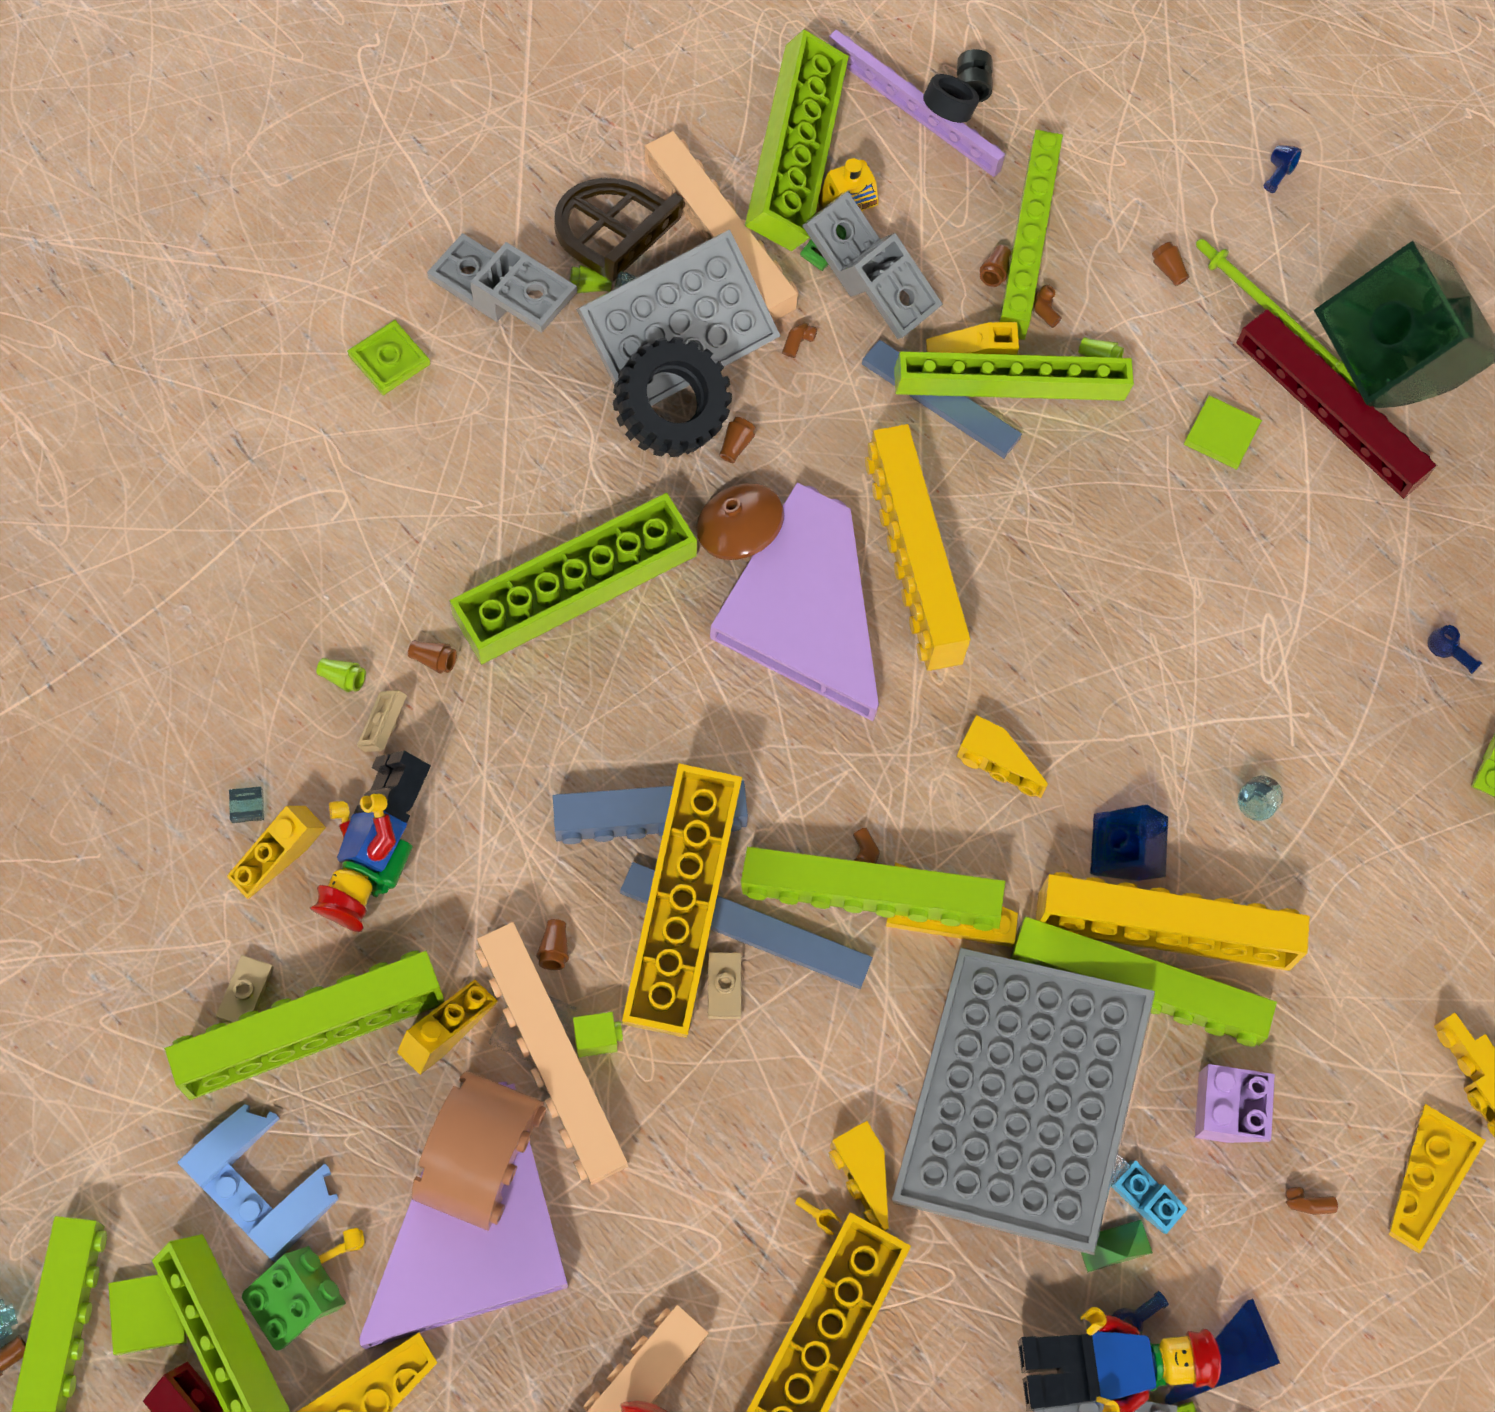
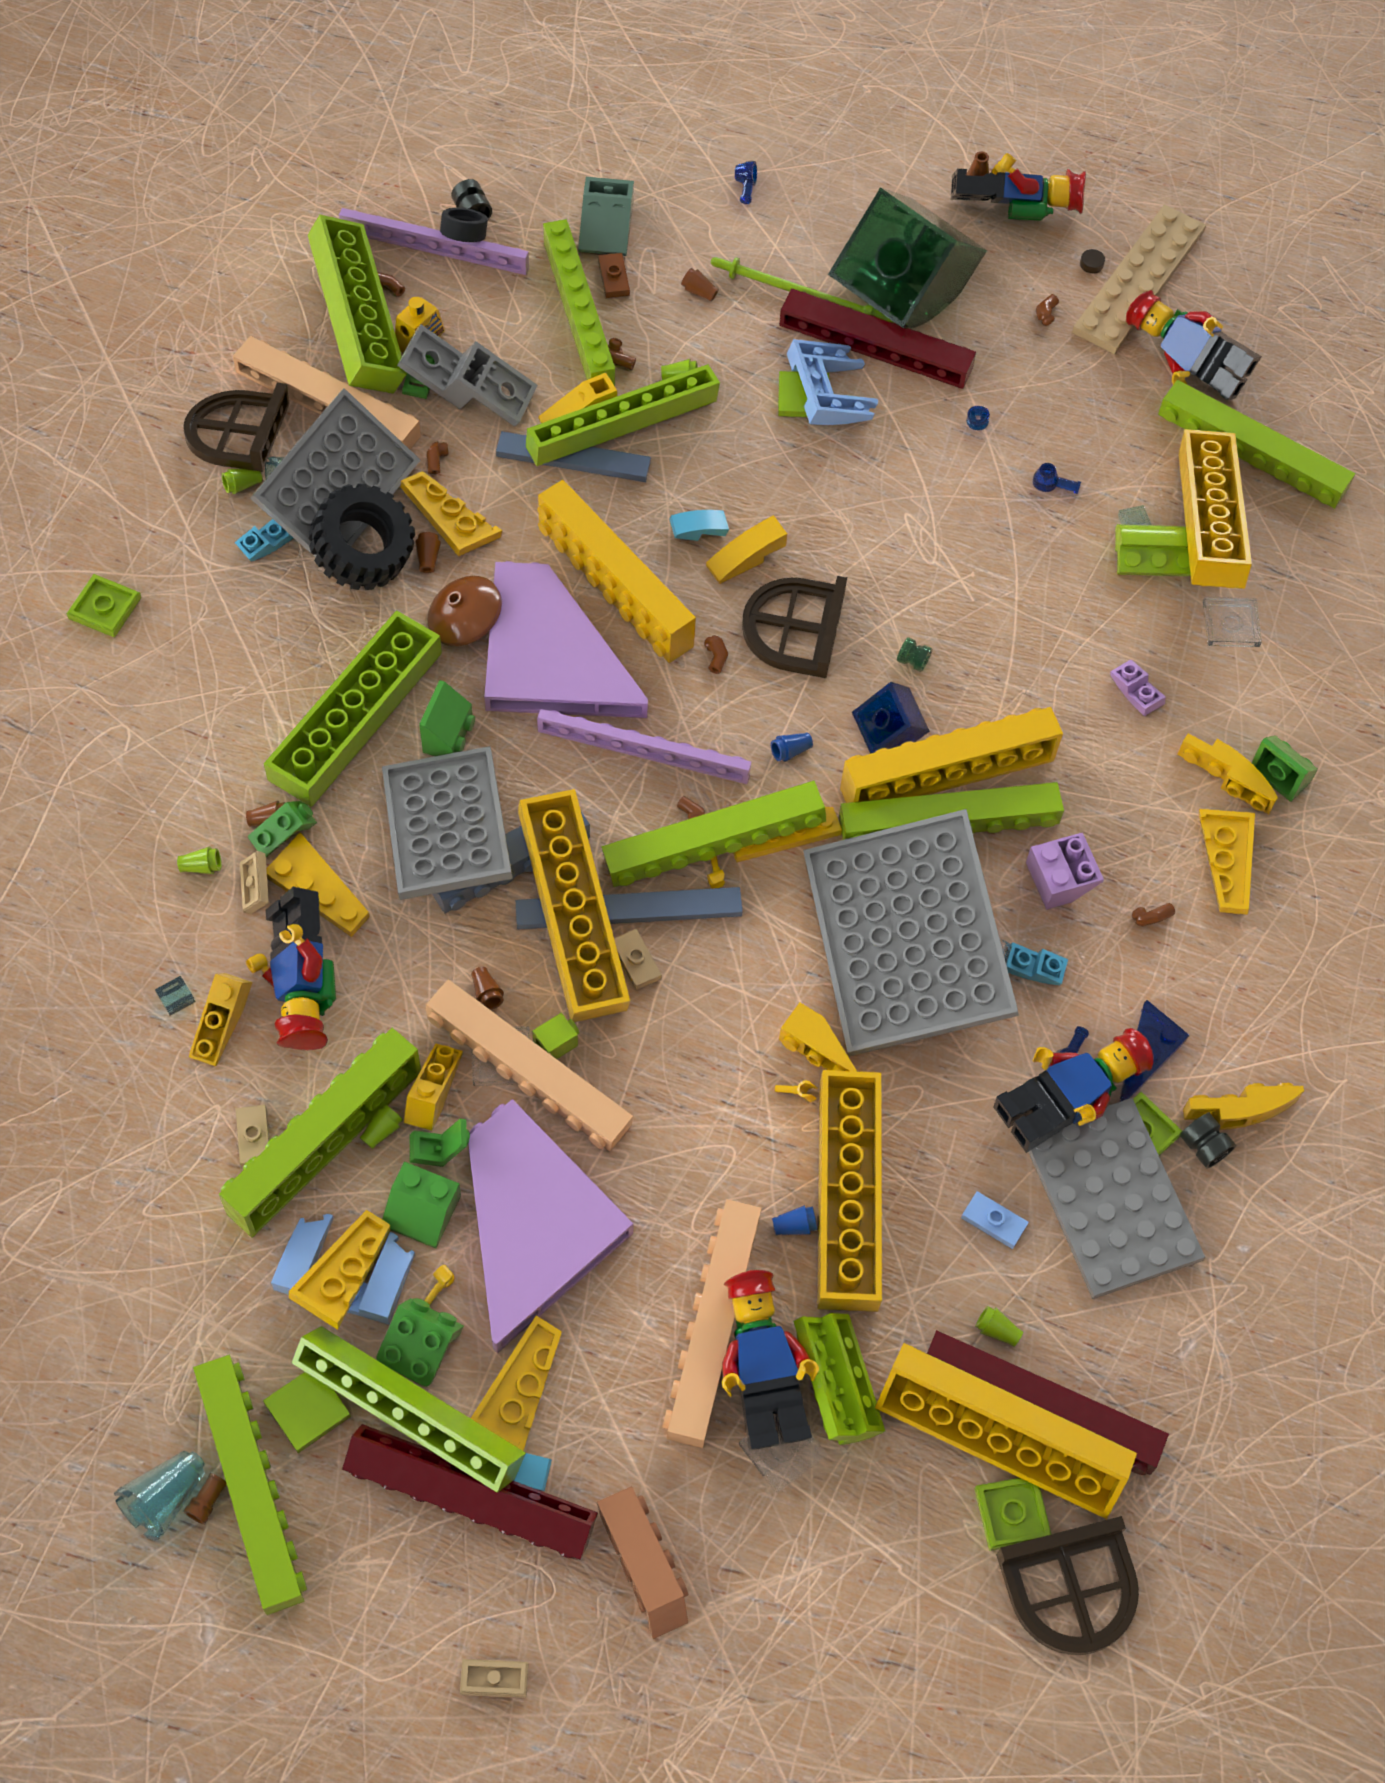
camera: 25 degrees left, 5 degrees down
(245, 1188) = (338, 1275): none -> yellow wing
(367, 1151) = (421, 1204): none -> bright green slope
(372, 1045) = (381, 1126): none -> lime cone
(414, 1095) = (439, 1148): none -> bright green bracket
(438, 673) = (281, 826): none -> bright green bracket
(440, 741) = (304, 868): none -> yellow wing
(475, 1149) = (512, 1158): nougat cylinder -> none
(502, 282) = (171, 506): light grey bracket -> none
(574, 357) = (262, 542): none -> medium azure slope
(600, 748) = (446, 823): none -> light grey plate
(657, 636) = (446, 722): none -> bright green slope
(741, 1363) = (796, 1222): none -> blue cone
(779, 410) = (448, 515): none -> yellow wing
(848, 129) = (391, 283): none -> dark orange arm
(852, 935) = (716, 878): none -> yellow hand
(858, 759) = (644, 746): none -> lavender plate
(985, 683) = (719, 651): none -> dark orange arm
(995, 268) = (564, 341): dark orange cone -> none
(997, 753) = (757, 698): yellow slope -> none
(1007, 823) = (789, 746): none -> blue cone
(1029, 528) = (693, 524): none -> medium azure slope
(1072, 582) = (748, 550): none -> yellow slope
(1085, 215) = (614, 275): none -> dark orange plate
(1108, 147) = (606, 215): none -> sand green slope
(1112, 709) = (826, 630): none -> dark brown window
(1118, 1246) = (1031, 1010): bright green slope -> none
(1193, 780) = (916, 655): none -> clear green wheel
(1235, 456) = (822, 405): none -> light blue wedge
(1260, 798) = (966, 637): clear light blue head -> none
(1411, 540) = (976, 424): none -> clear blue bush
(1425, 929) = (1135, 686): none -> lavender slope

